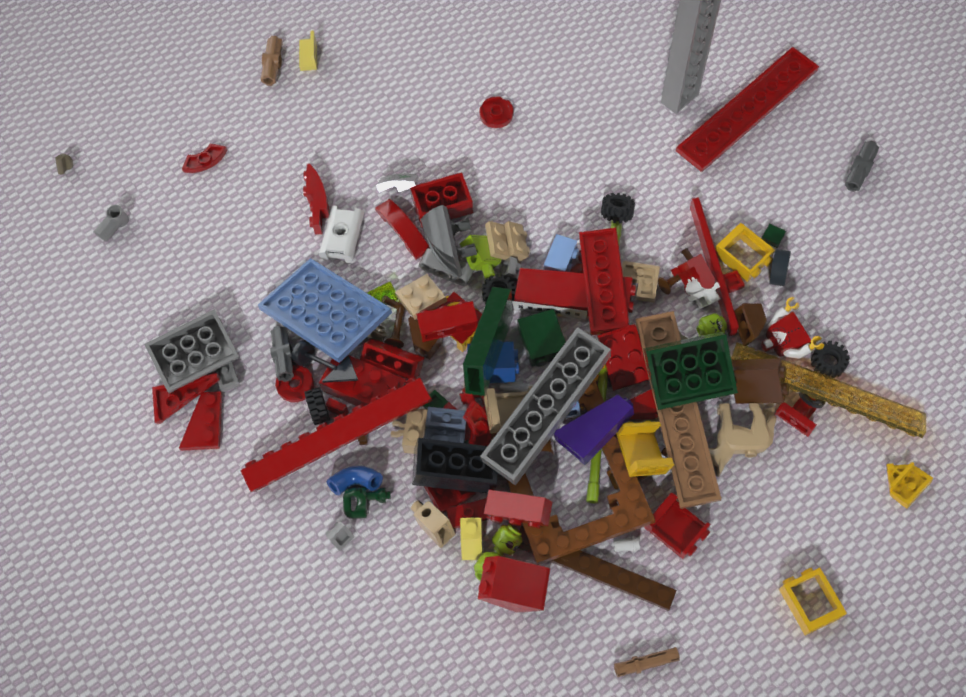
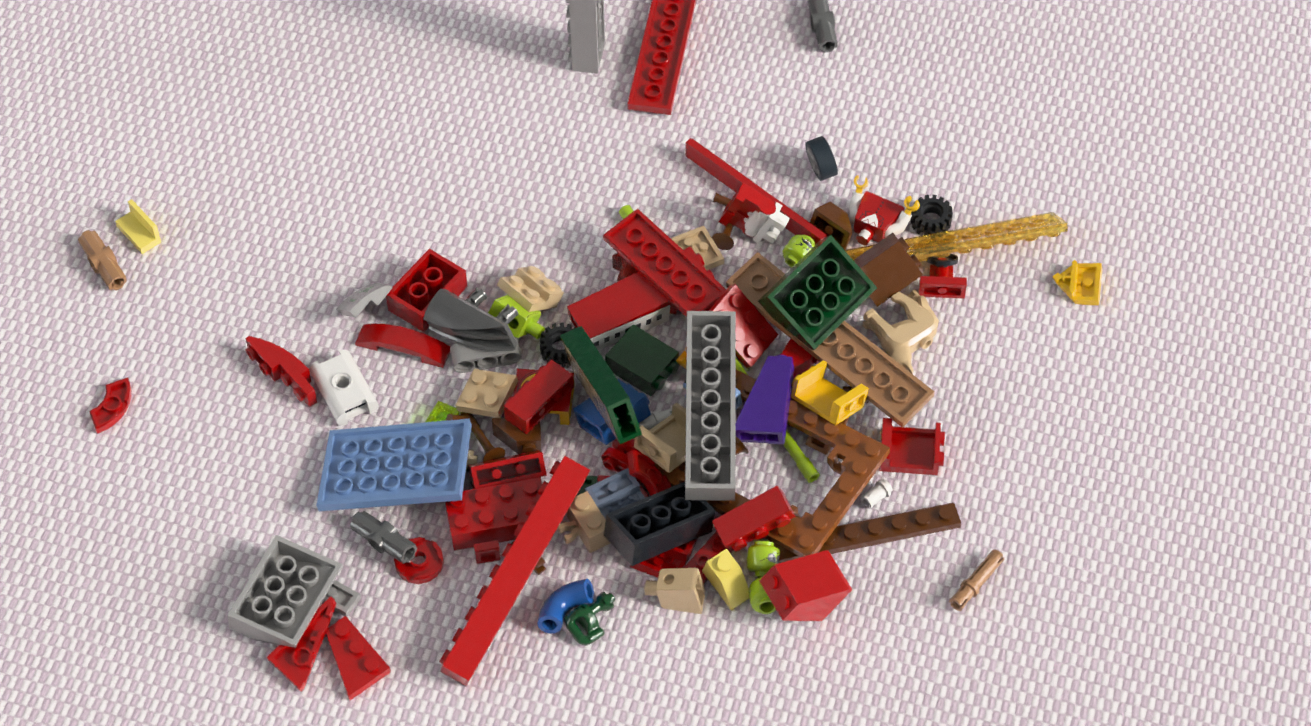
camera: 40 degrees left, 10 degrees down
(111, 222) = (63, 531): light grey piece -> none
(305, 353) = (471, 507): black piece -> none
(317, 406) = (467, 560): black tyre -> none
(339, 536) = (593, 664): light grey tile -> none
(496, 112) = (406, 174): red tile -> none
(509, 267) = (553, 314): light grey tile -> none
(561, 254) = (595, 270): light blue brick -> none
(617, 207) = (617, 193): black tyre -> none
(733, 281) = (786, 197): red tile -> none
(752, 240) = (781, 151): yellow window -> none
(773, 235) = (789, 135): dark green tile -> none
(806, 626) = (1072, 448): yellow window -> none

